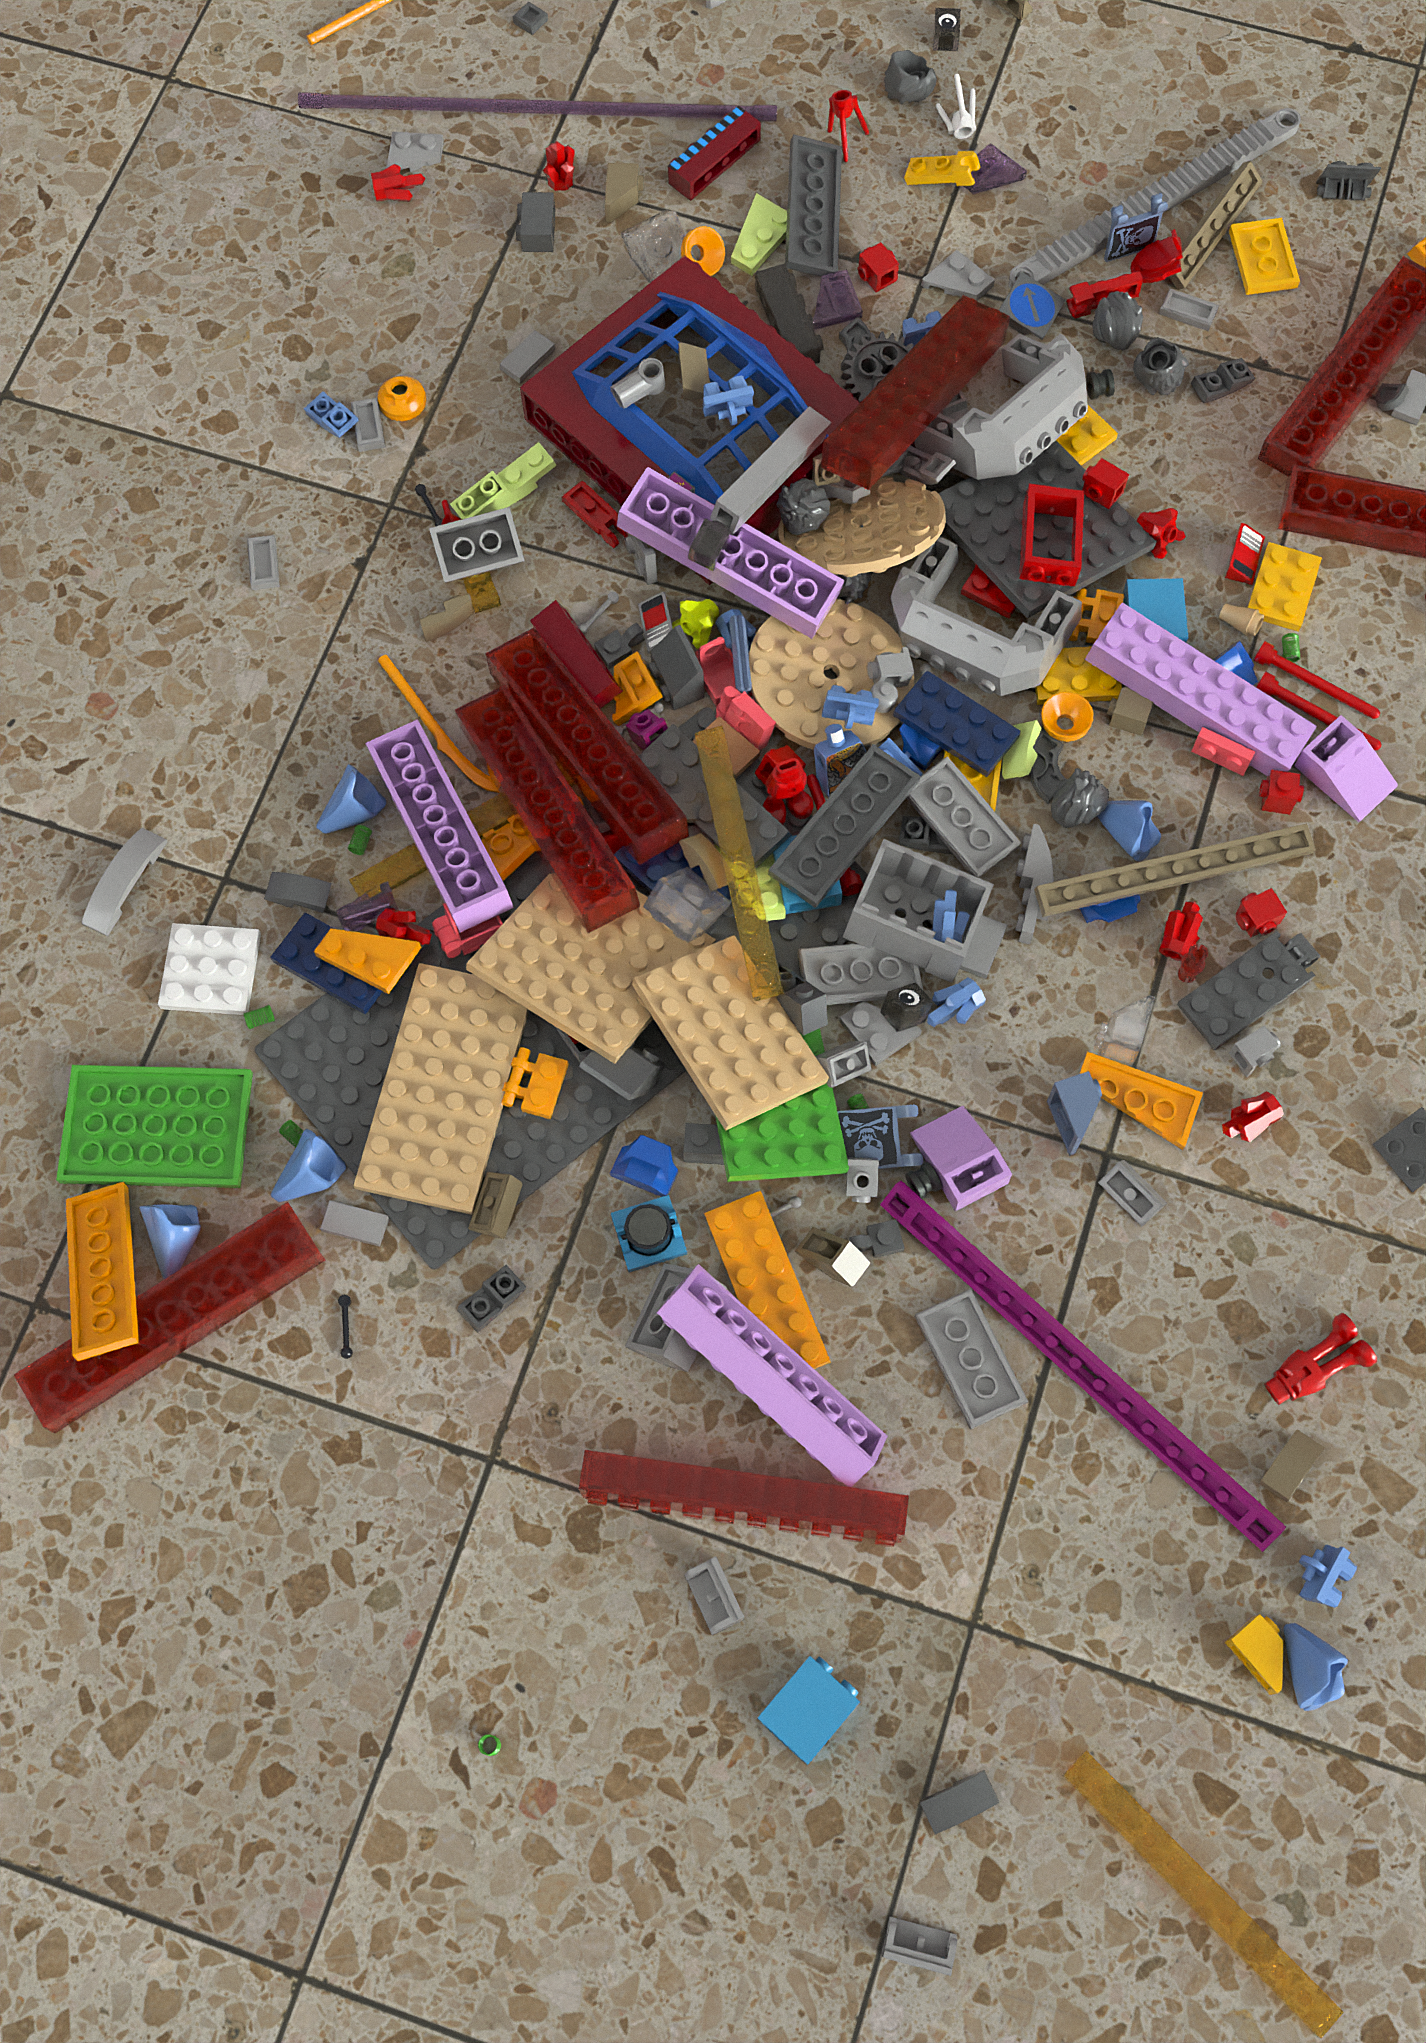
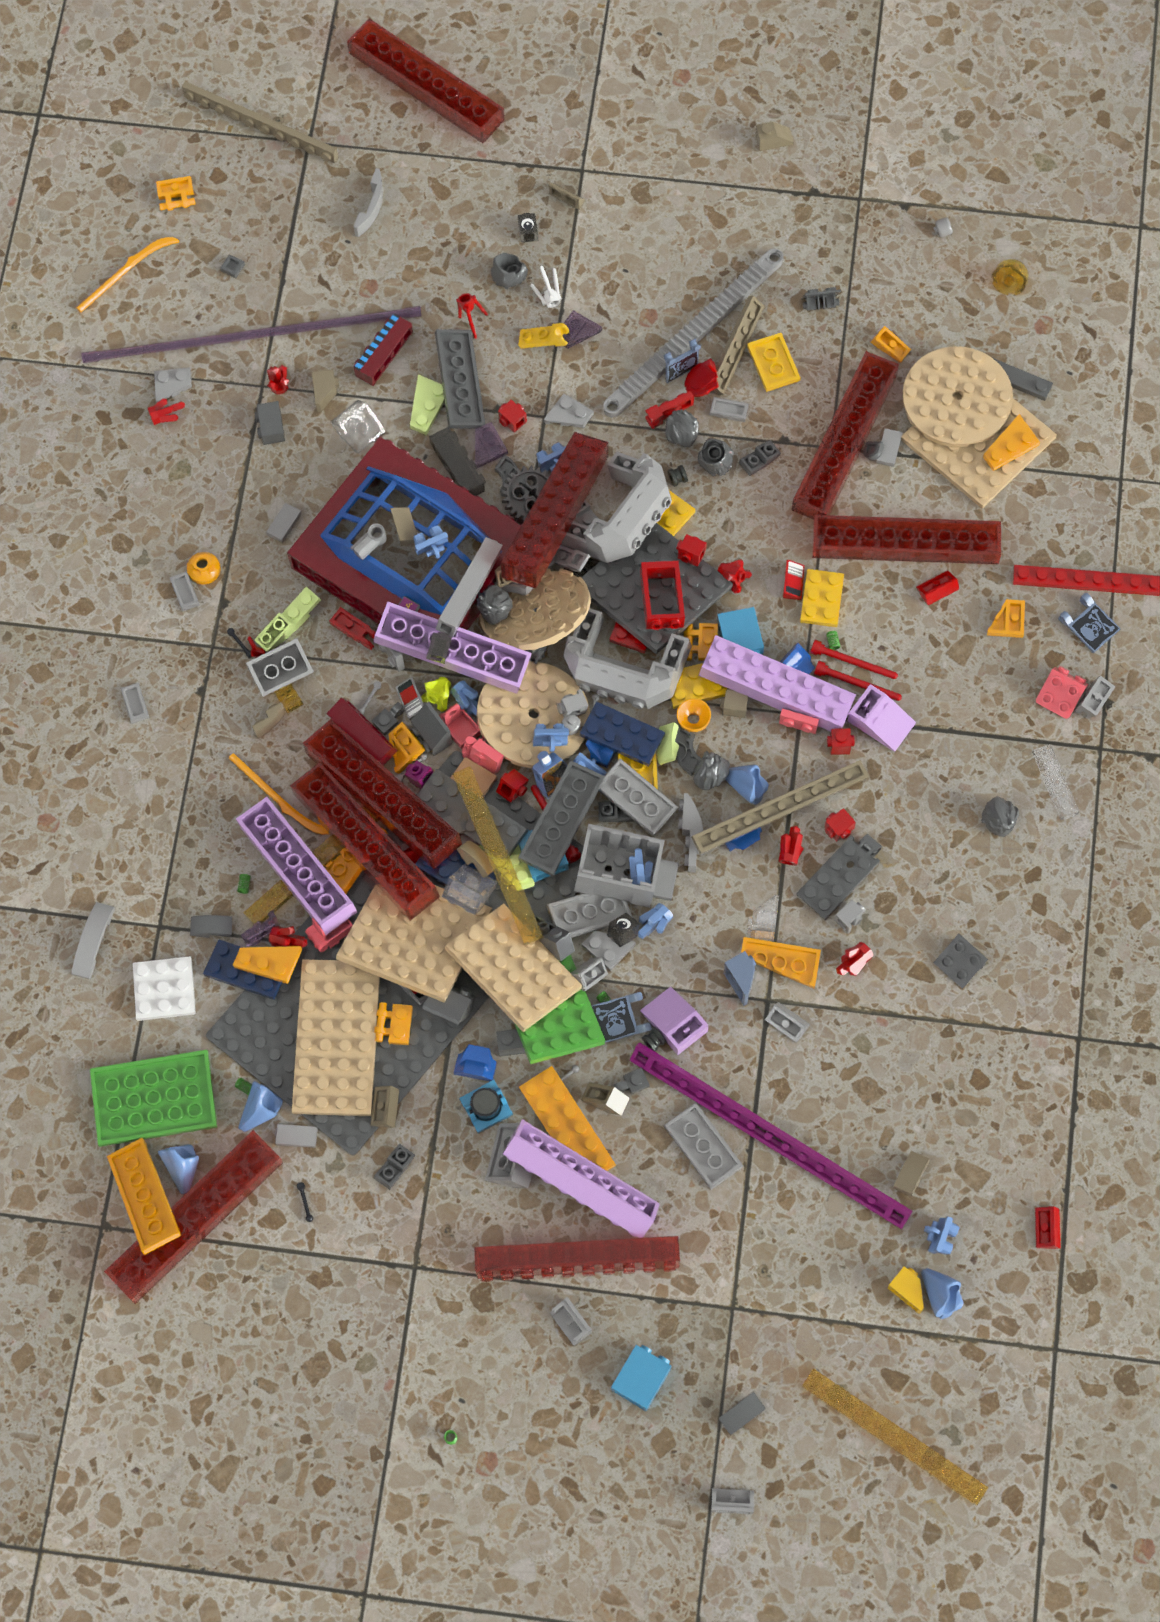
camera: 10 degrees left, 0 degrees up
(269, 1014) = (200, 1015): bright green piece -> none
(330, 415) = (158, 589): medium blue slope -> none
(351, 803) = (233, 860): medium blue hat -> none
(710, 246) = (395, 423): light orange piece -> none
(740, 654) = (471, 712): sand blue axle -> none
(788, 783) = (521, 798): red piece -> none
(858, 1167) = (614, 1038): light grey brick -> none
(1031, 306) = (621, 427): piece -> none
(1192, 963) = (800, 867): clear red pin -> none
(1243, 619) = (799, 626): tan cone -> none
(1301, 1373) = (908, 1115): red piece -> none

